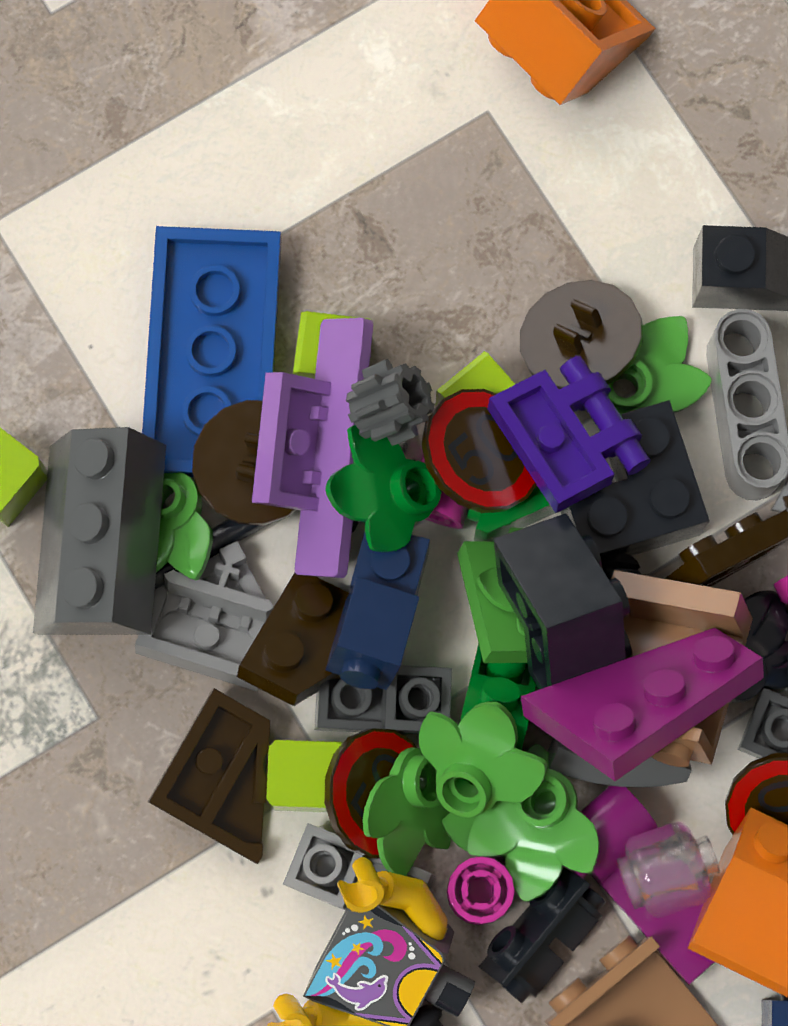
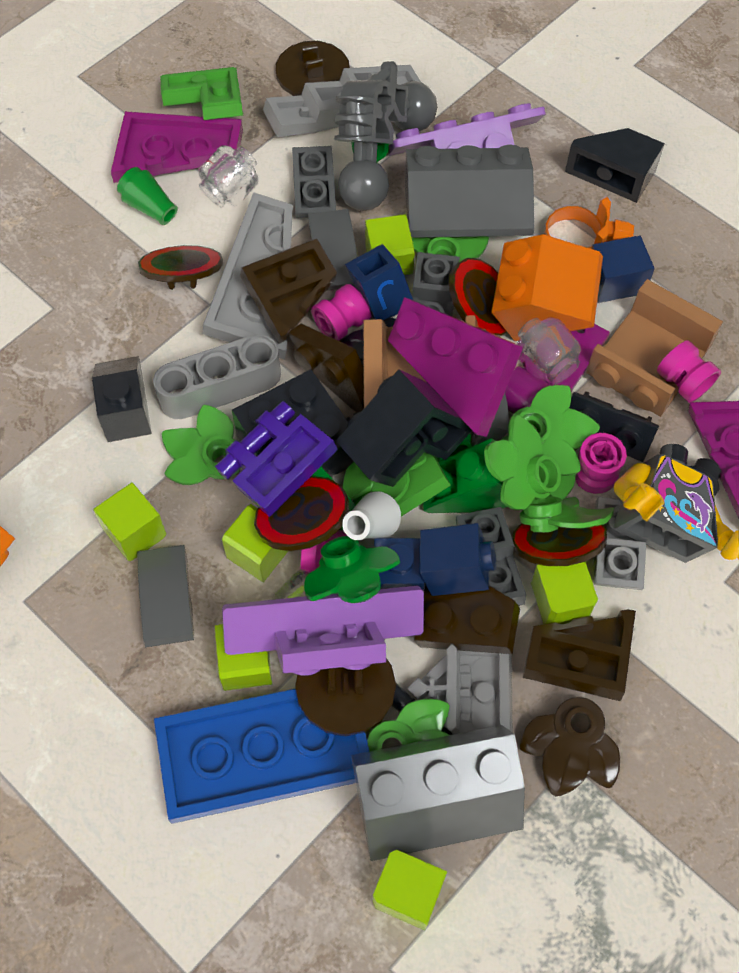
camera: 105 degrees left, 15 degrees down
(102, 716) = (569, 754): none -> dark brown plate
(390, 402) = (287, 570): dark grey gear -> none
(441, 275) = (165, 596): none -> dark grey slope
(455, 541) = (373, 517): none -> white cone
(550, 248) = (130, 521): none -> lime piece
(582, 321) = (191, 491): piece -> none

